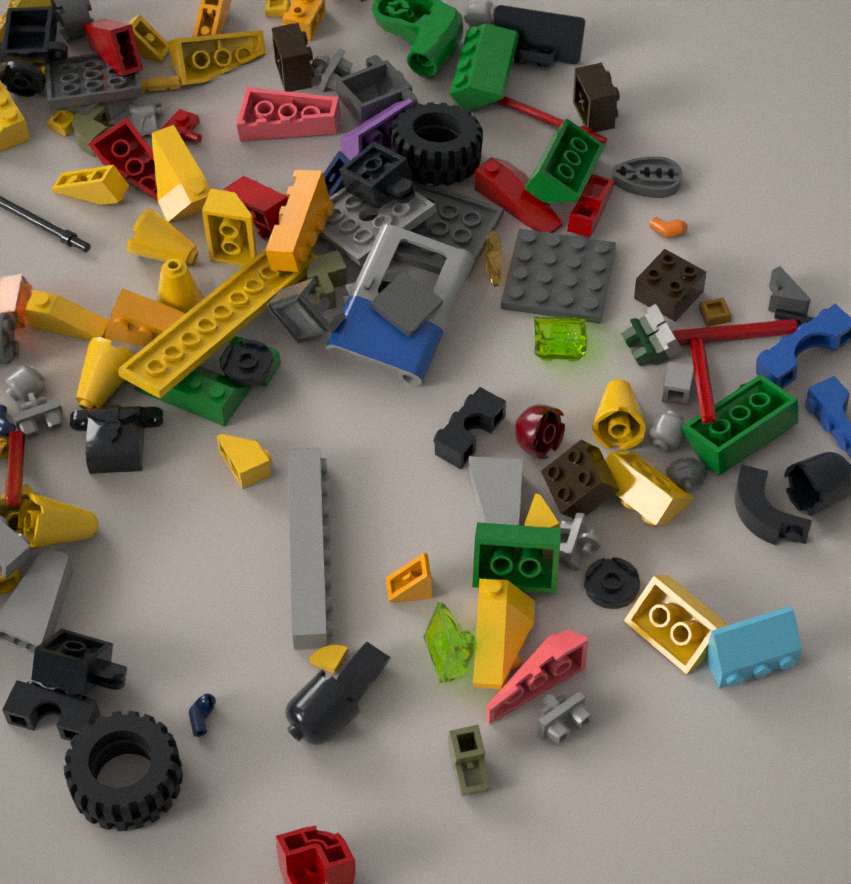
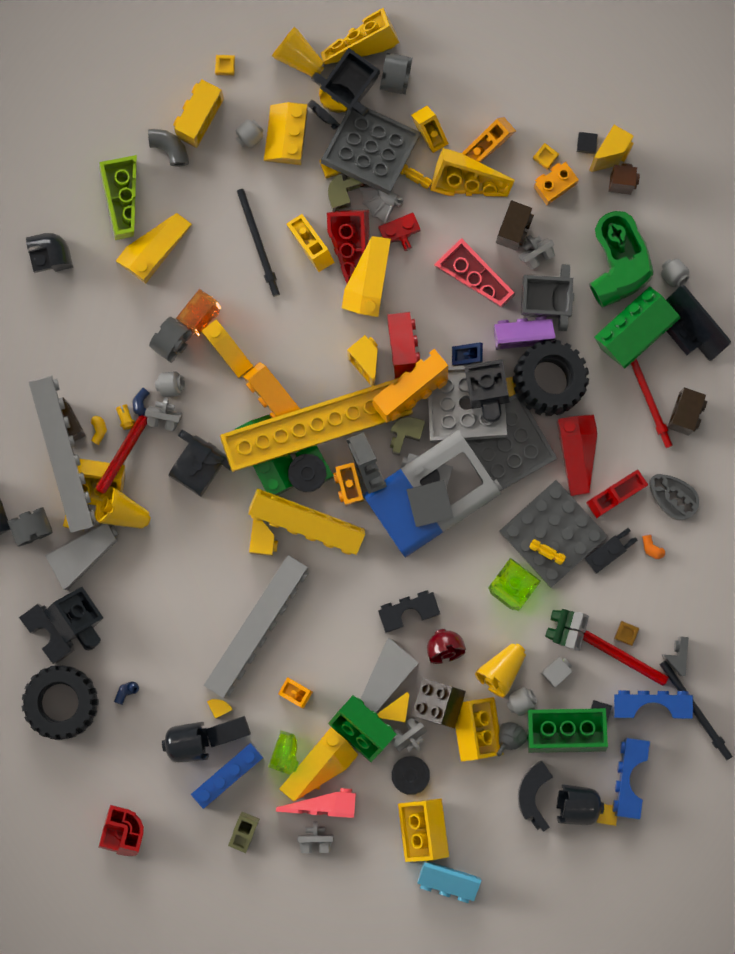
camera: 35 degrees right, 30 degrees up
(100, 373) = (218, 413): yellow cone -> none
(115, 45) = (400, 130): red slope -> none
(160, 240) = (323, 330): yellow cone -> none
(178, 287) = (305, 391): yellow cone -> none
(283, 405) = (306, 521): none -> yellow brick
(303, 350) = (349, 483): none -> light orange brick
(396, 718) = (227, 775): none -> blue arch
(494, 258) = (517, 497): clear yellow slope -> none
(565, 165) = (621, 455): green slope -> none
(568, 283) = (547, 551): none -> yellow axle
(629, 256) = (609, 552): none -> black hinge
(670, 284) = (612, 596): dark brown brick -> none
(703, 381) = (569, 685): red axle -> none

